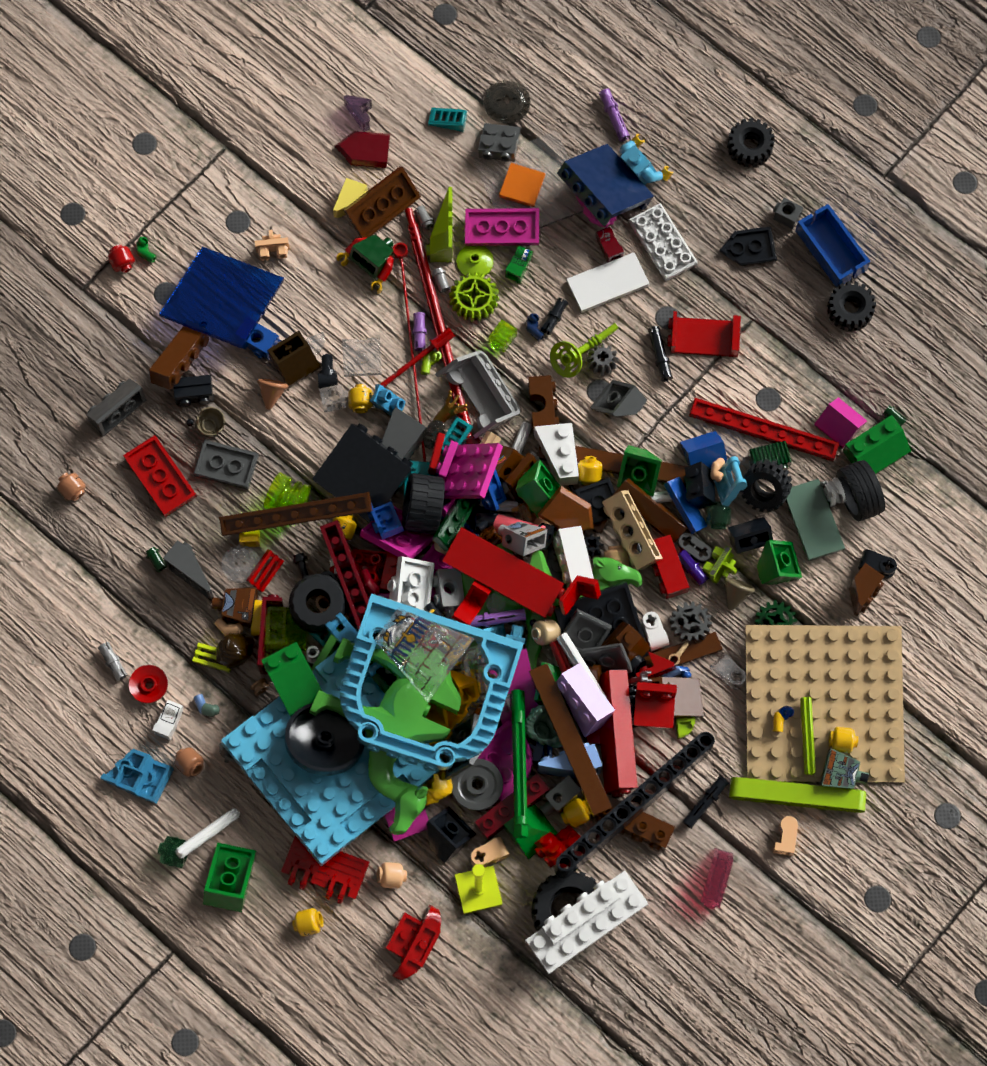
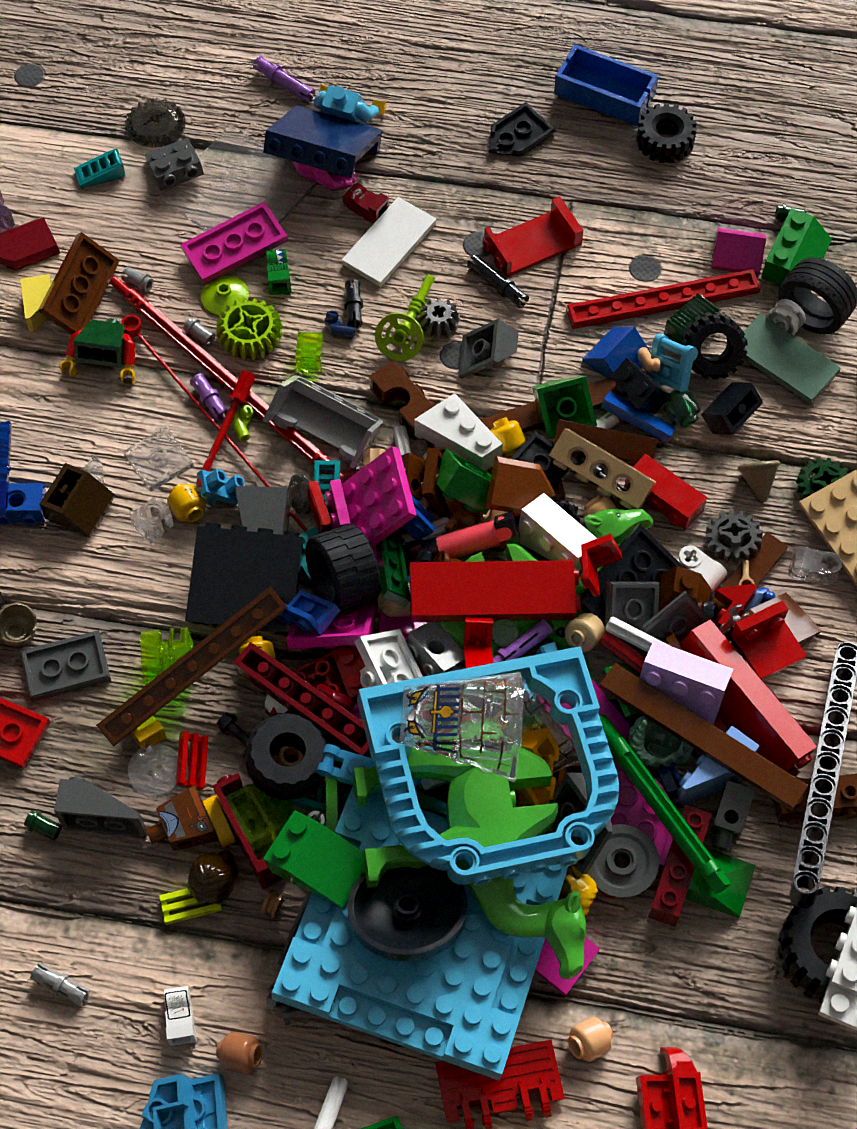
camera: 30 degrees left, 10 degrees down
(143, 676) = (116, 974): red dish -> none
(205, 708) = (218, 973): sand green arm -> none
(227, 629) = (186, 858): light nougat arm -> none
(271, 391) = (71, 551): nougat hat -> none
(327, 376) = (129, 498): black axle -> none
(441, 238) = (173, 281): lime wedge -> none
(448, 834) = (626, 945): black slope -> none
(449, 409) = (299, 459): pearl gold piece -> none
(478, 889) = (708, 988): neon yellow tile -> none
(492, 851) = (691, 935): light nougat piece -> none
(522, 185) = (228, 192): orange tile -> none
(523, 537) = (487, 539): light grey torso -> none
(551, 846) = (769, 877): red plate -> none
(576, 813) = (760, 825): yellow head -> none
(663, 242) = (421, 173): white tile -> none
(684, 726) = (812, 656): lime tile -> none
(692, 567) = (695, 479): dark purple axle -> none
(697, 544) = (678, 457): dark grey beam -> none
(723, 566) = (718, 448): lime hips -> none
(755, 131) = (448, 22): black tyre -> none
(778, 563) = (782, 423): green slope -> none
(791, 219) = (535, 80): dark grey brick -> none

